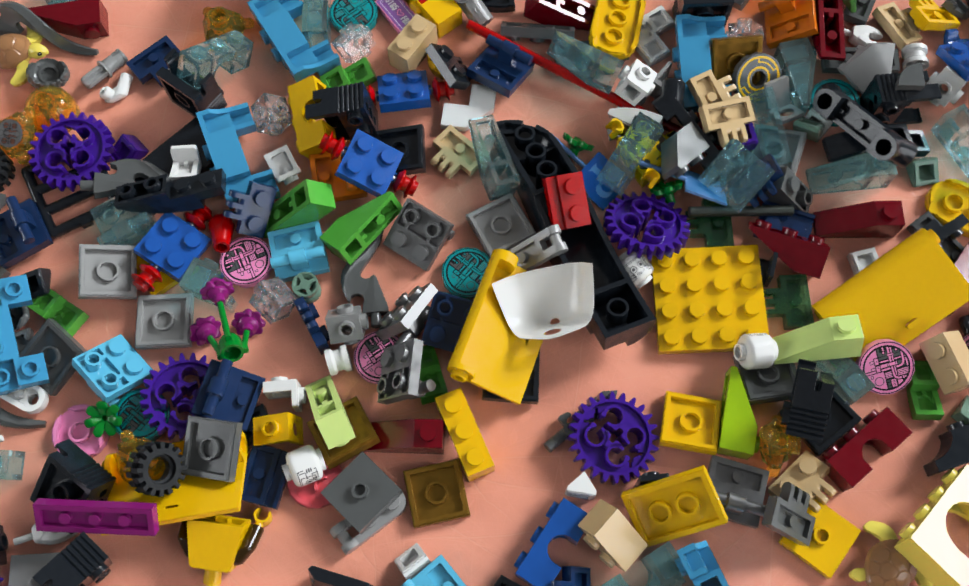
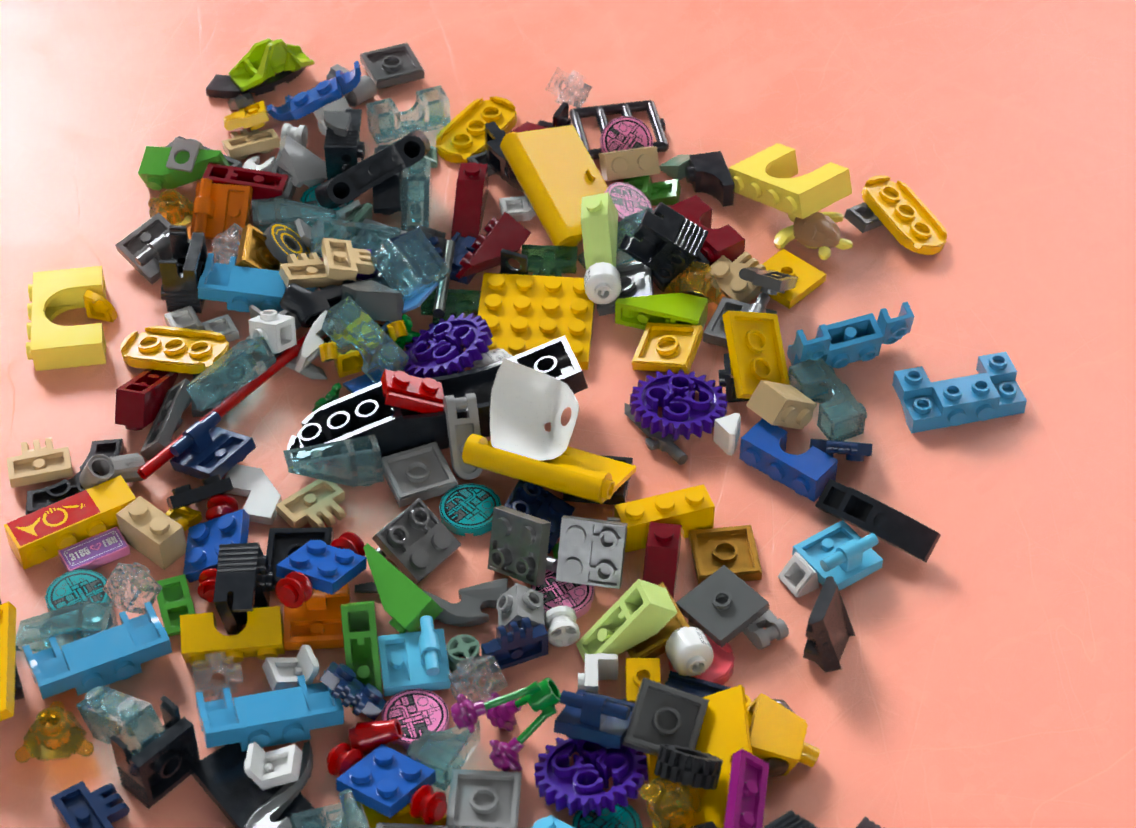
camera: 85 degrees left, 25 degrees down
(167, 196) = (320, 760): black slope -> none

